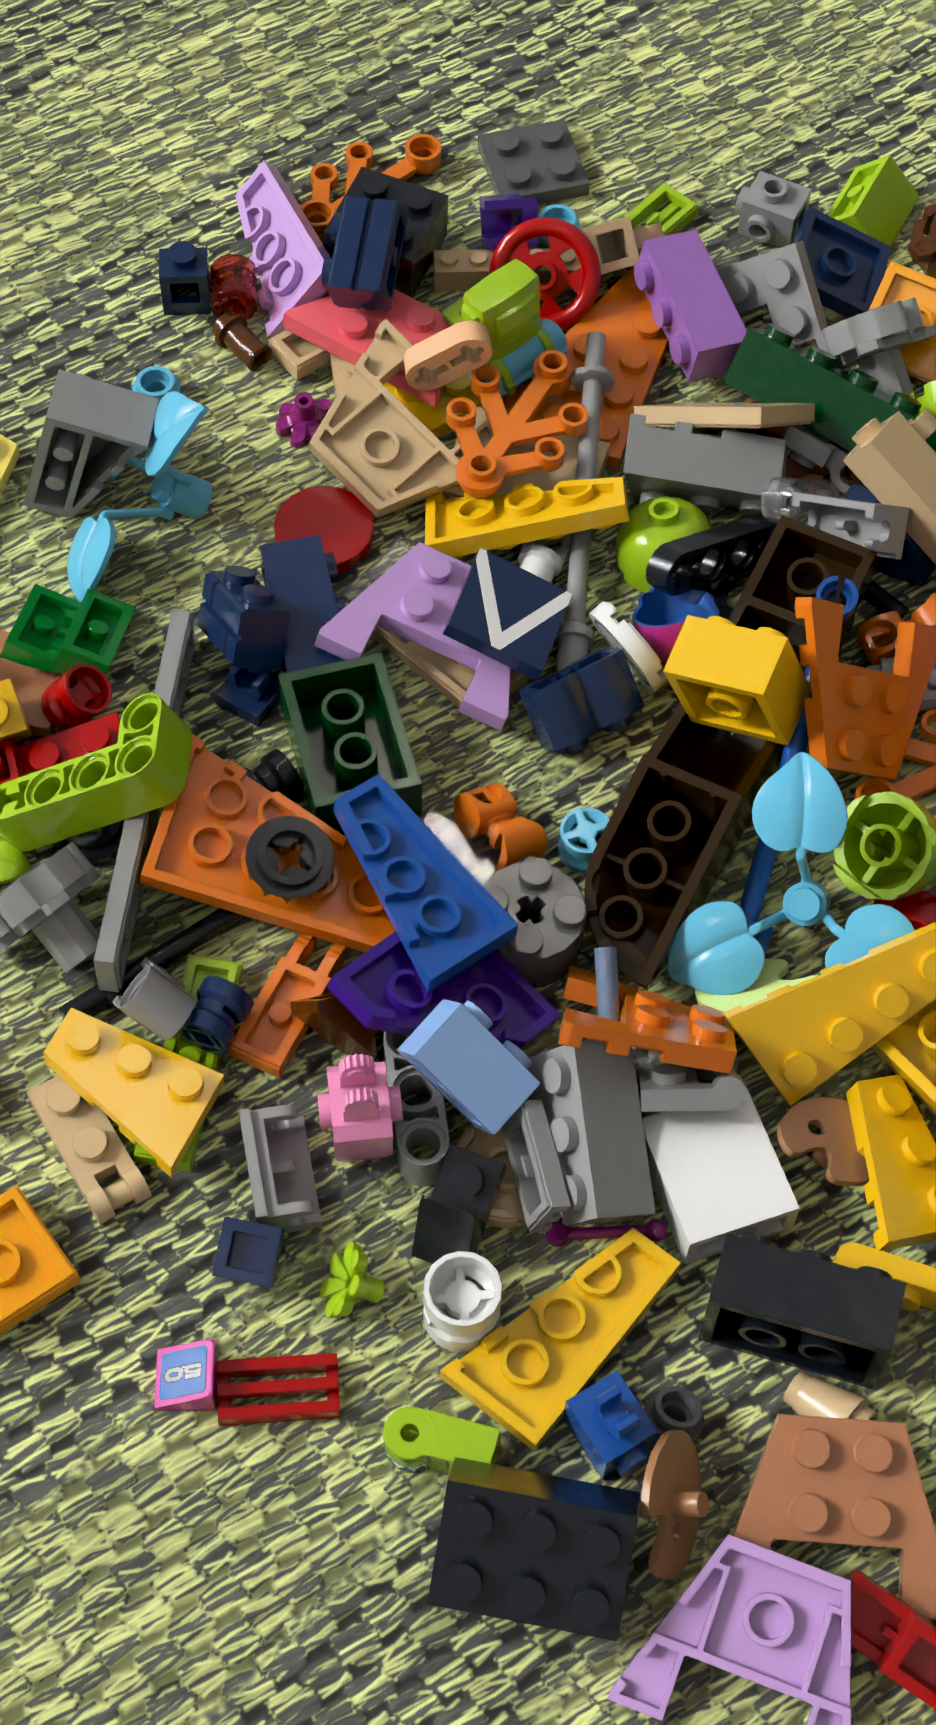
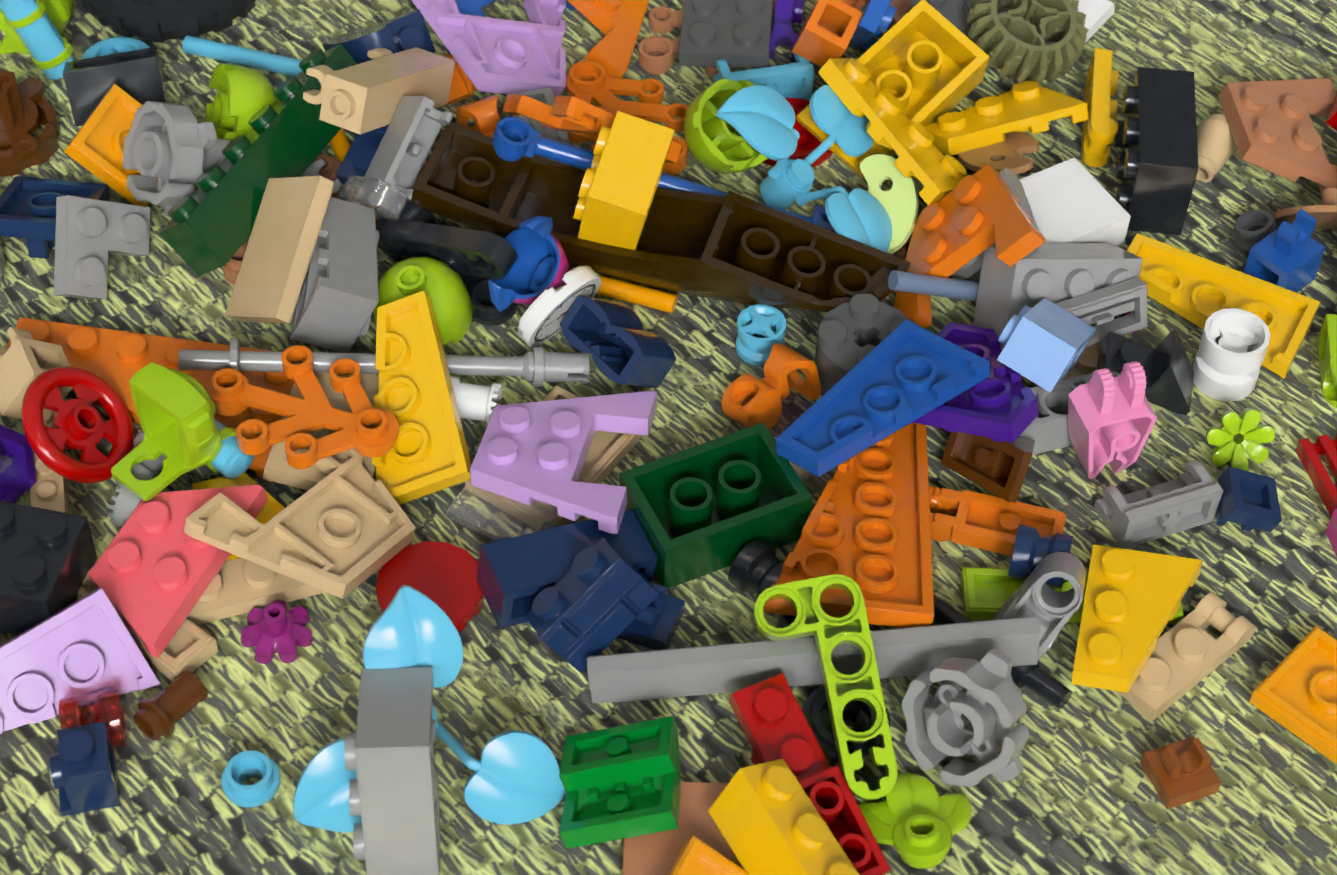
camera: 100 degrees left, 10 degrees down
(76, 696) = (707, 752): red wheel -> none
(282, 836) = (862, 490): black gear -> none
(365, 253) = (97, 540): dark blue brick -> none
(447, 355) = (238, 455): light nougat beam -> none
(507, 614) = (545, 390): dark blue tile -> none
(690, 304) = (121, 297): medium lavender brick -> none

